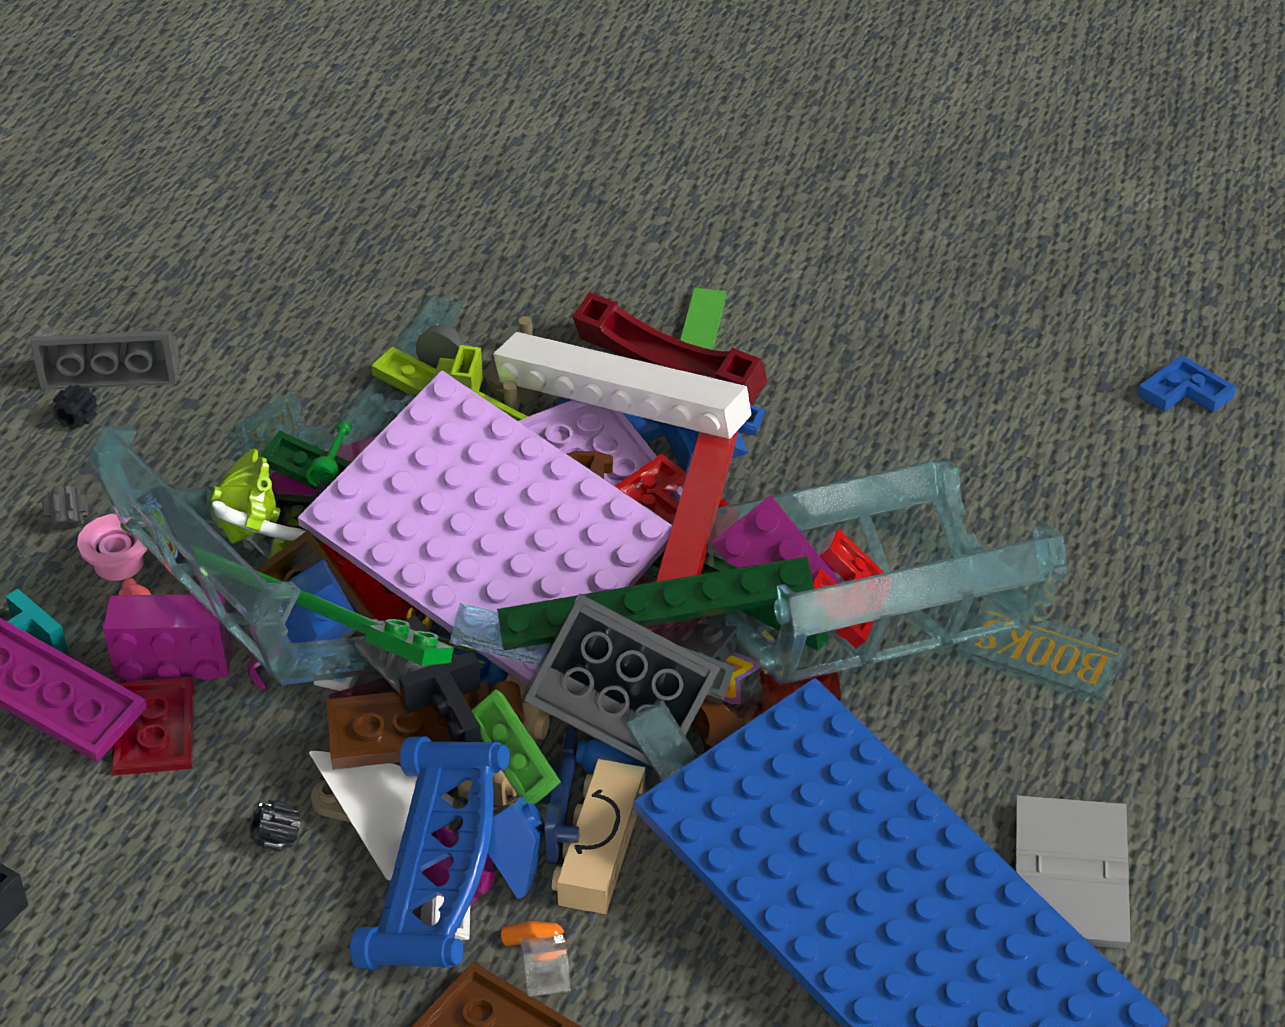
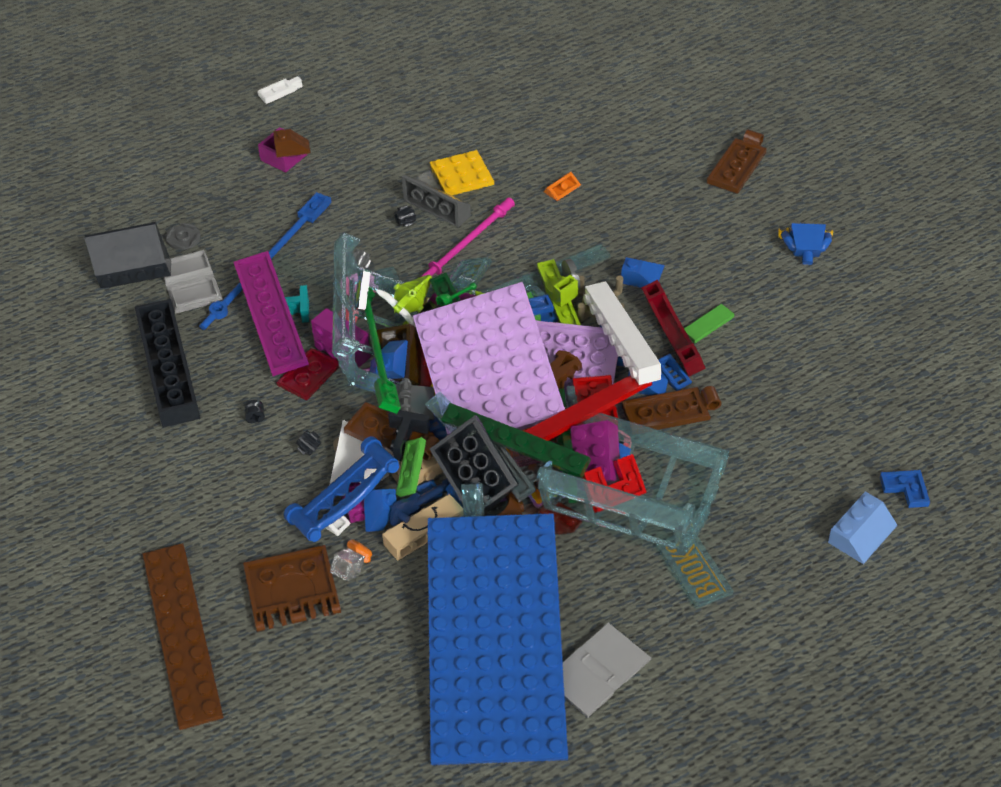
camera: 40 degrees right, 5 degrees up
(99, 302) = (461, 173): none -> yellow plate
(123, 834) = (254, 411): none -> black wheel
(207, 455) = (499, 211): none -> dark pink bar
(286, 248) = (562, 186): none -> orange slope
(516, 97) = (738, 162): none -> reddish brown hinge
(537, 299) = (640, 272): none -> blue slope
(722, 149) = (806, 240): none -> blue torso
(786, 452) = (672, 408): none -> reddish brown hinge
(1193, 467) = (862, 528): none -> medium blue slope

